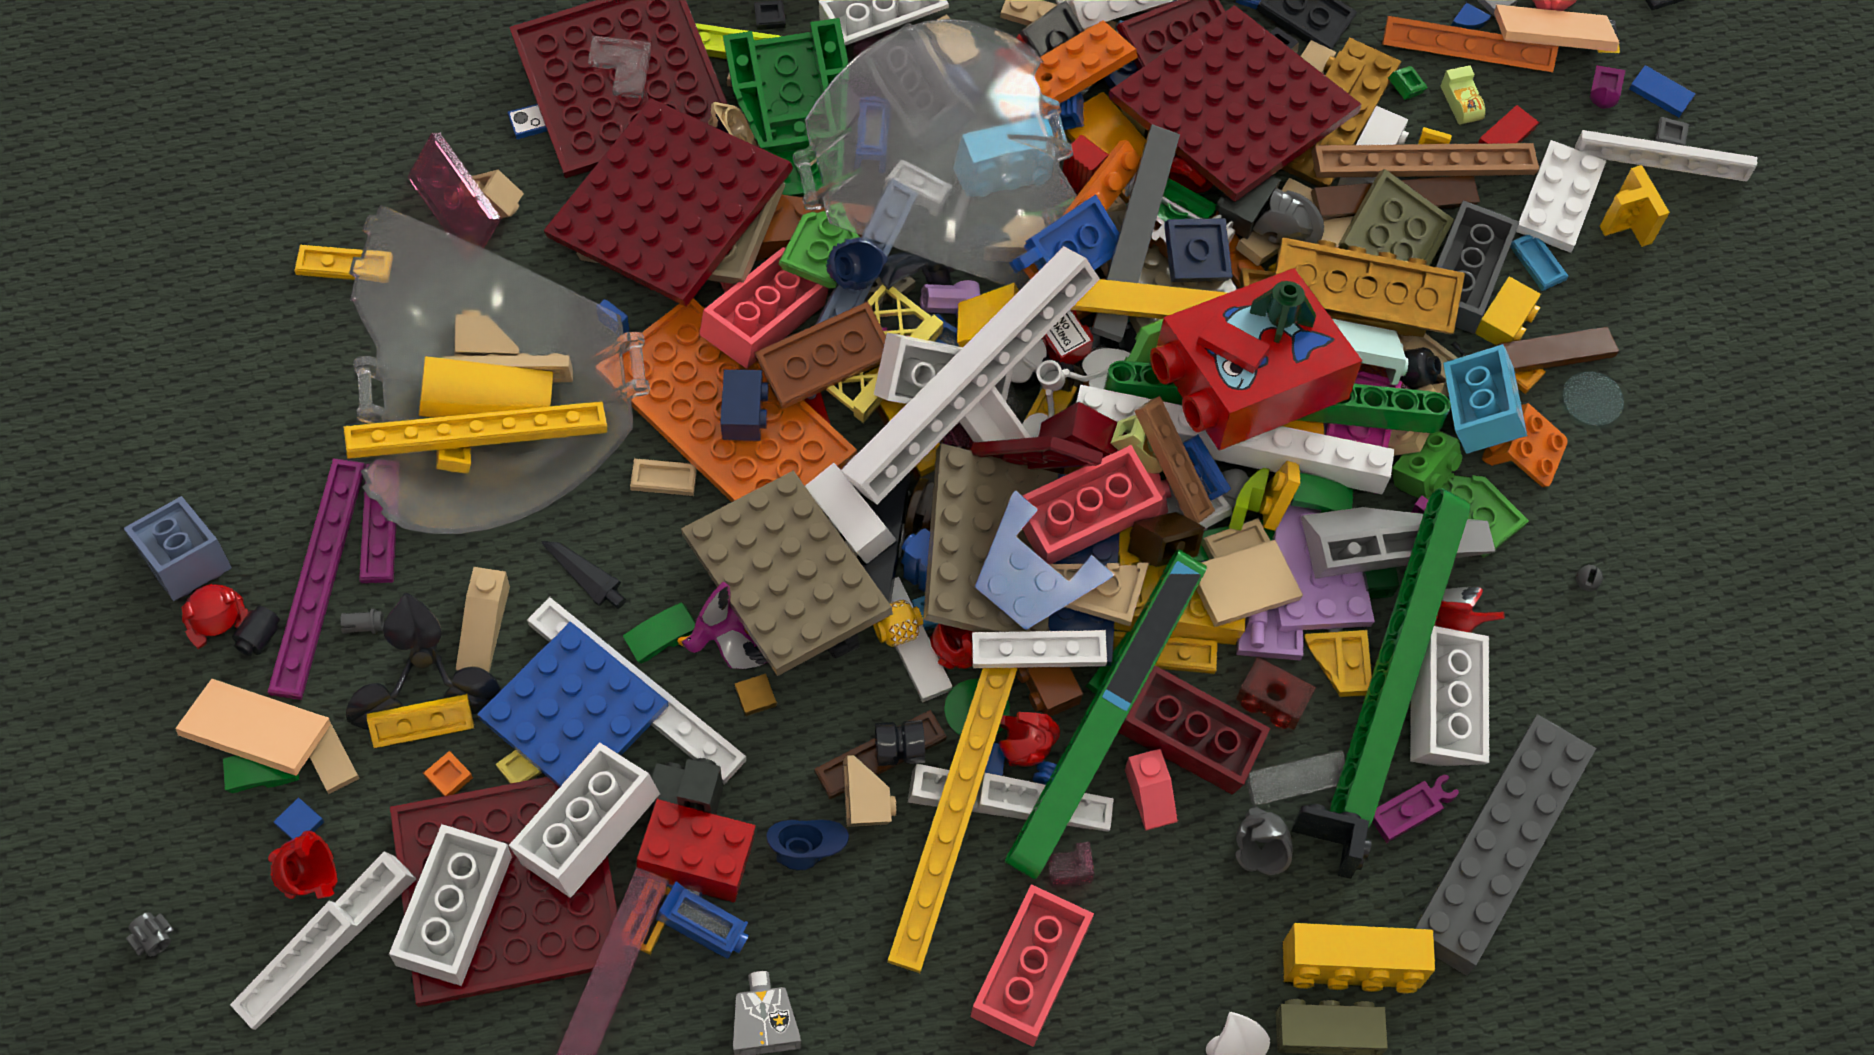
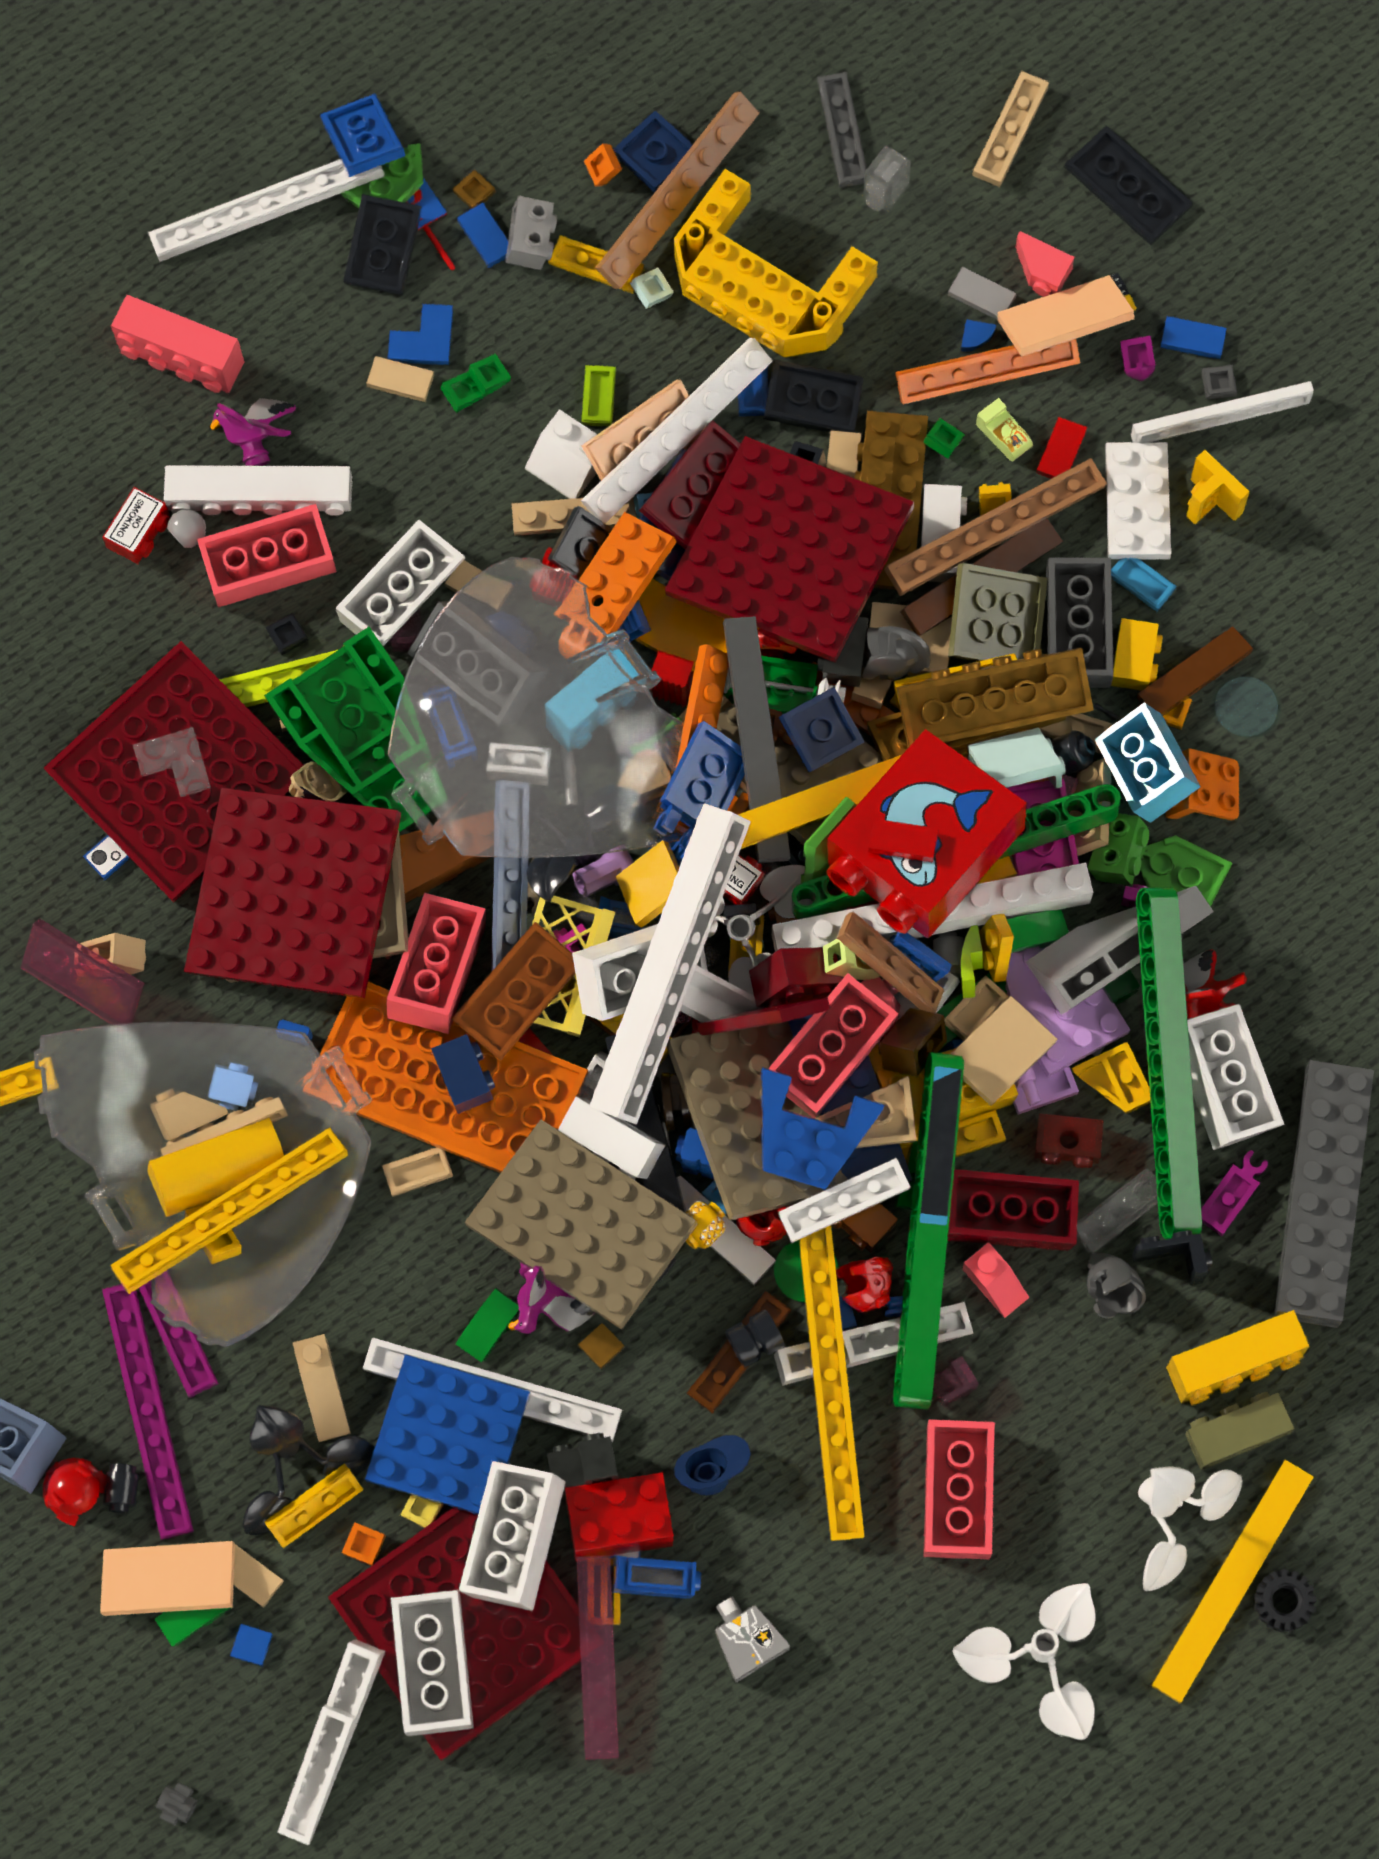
camera: 15 degrees left, 10 degrees up
(304, 867) = (282, 1685): red helmet -> none
(362, 622) = (212, 1435): dark grey pin -> none
(534, 333) = (232, 1086): none -> light blue brick
(592, 579) = (400, 1300): black bar -> none
(810, 248) = (461, 884): bright green tile -> none
(855, 263) = (507, 889): dark blue hair -> none
(866, 796) = (745, 1400): tan slope -> none
(1284, 307) = (935, 782): dark green brick -> none
(1583, 575) = (1301, 895): dark grey hinge -> none

